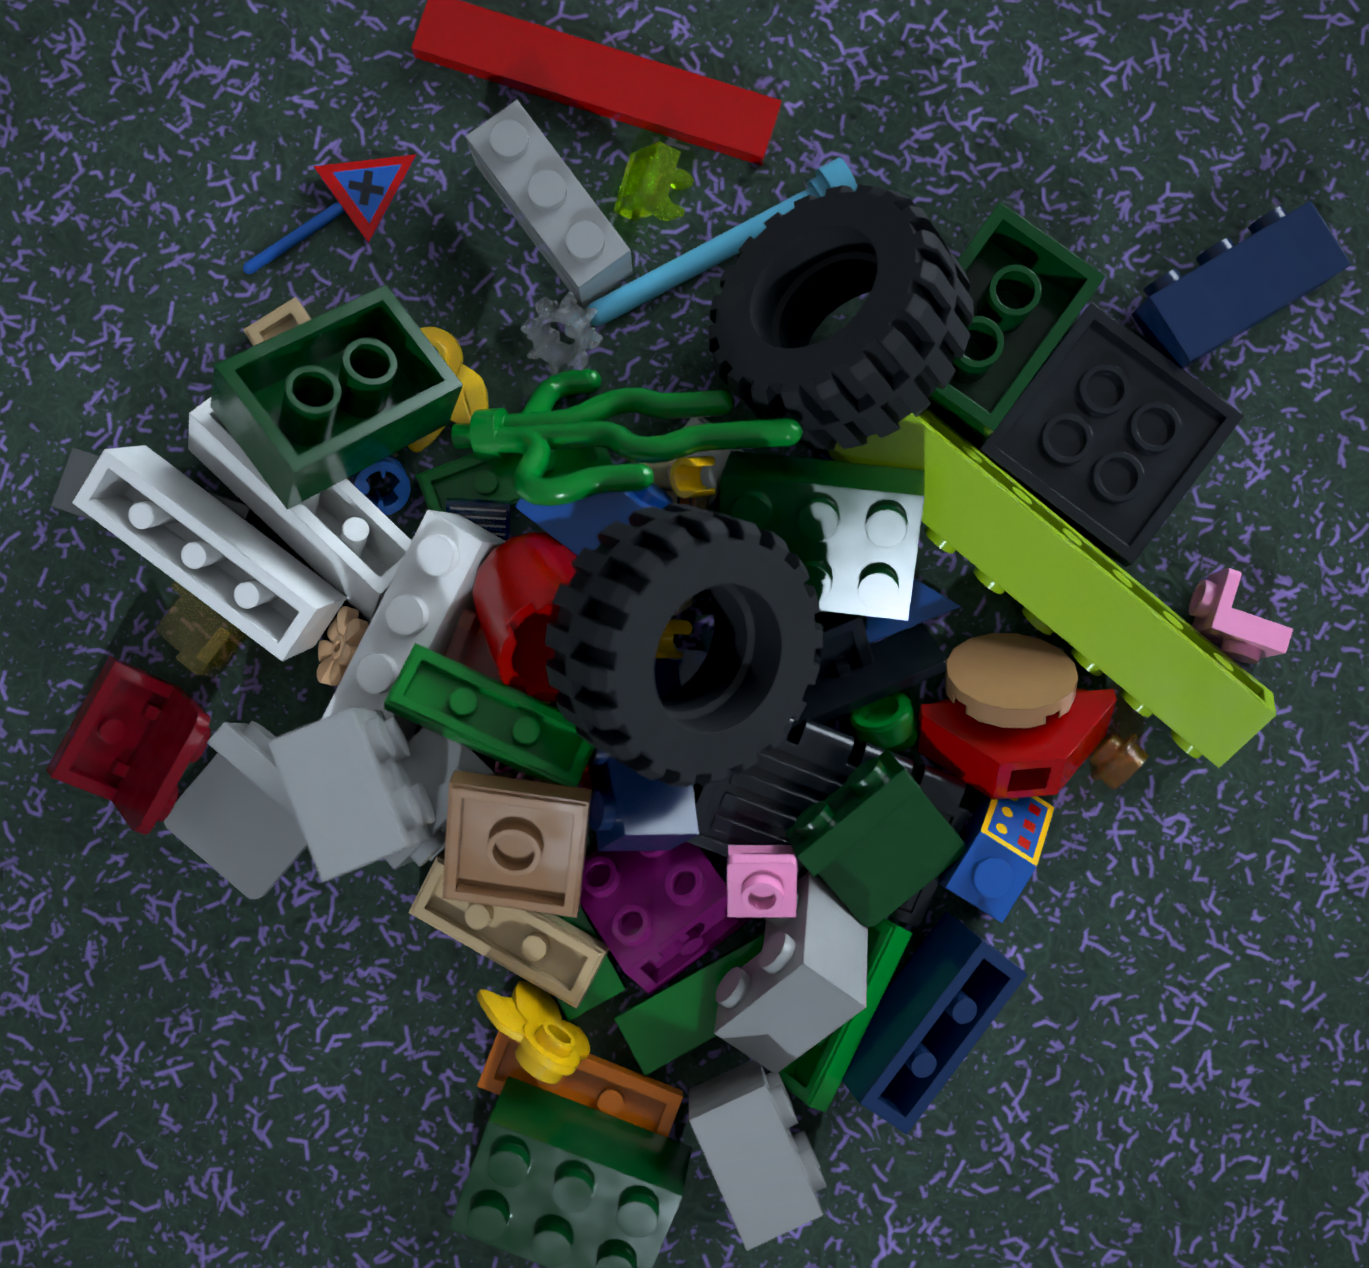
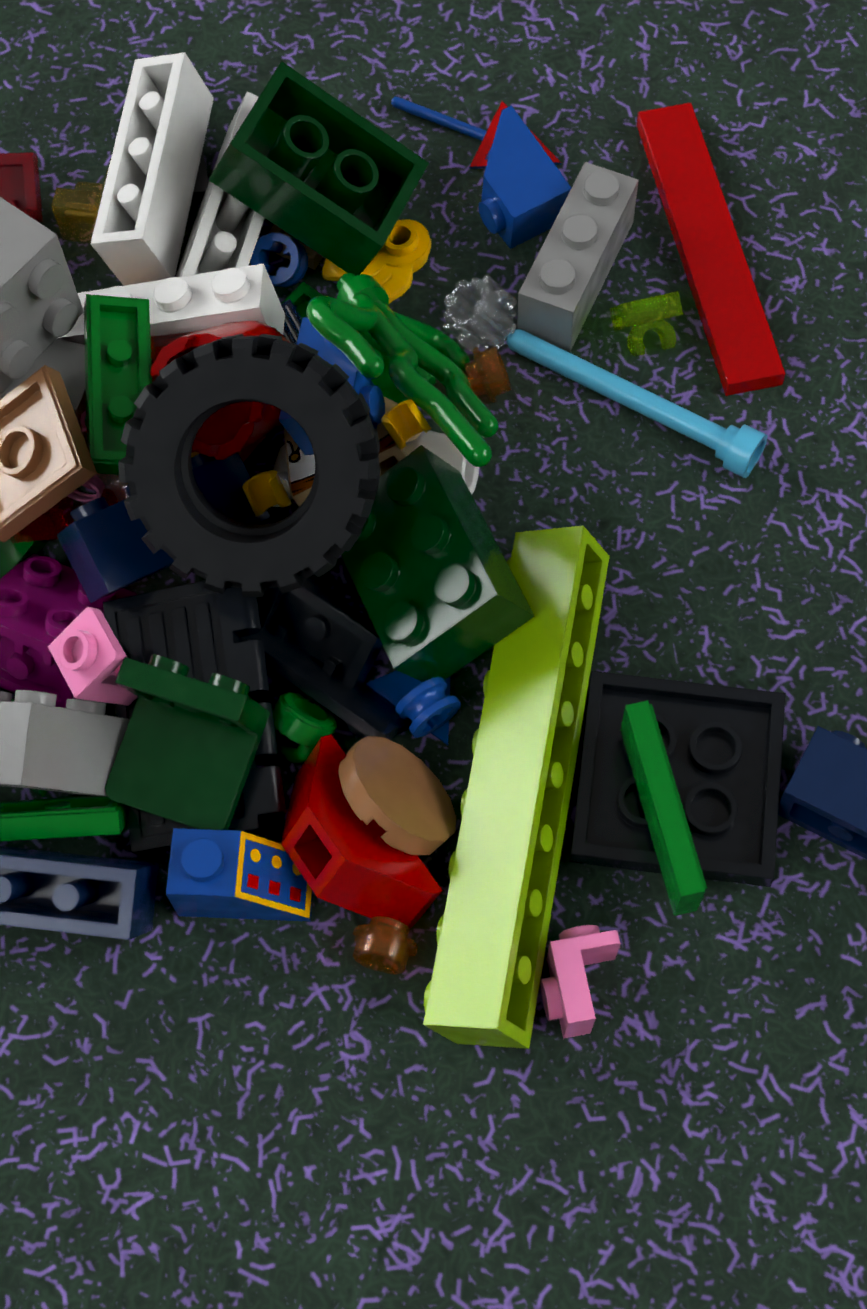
camera: 65 degrees right, 20 degrees down
(430, 208) = (520, 184): none -> blue slope
(622, 362) = (488, 373): none -> clear orange plate
(883, 357) = (613, 471): black tyre -> none
(934, 606) = (428, 707): none -> blue bush
(1023, 303) = (704, 612): dark green brick -> none
(1154, 468) = (663, 808): none -> green tile

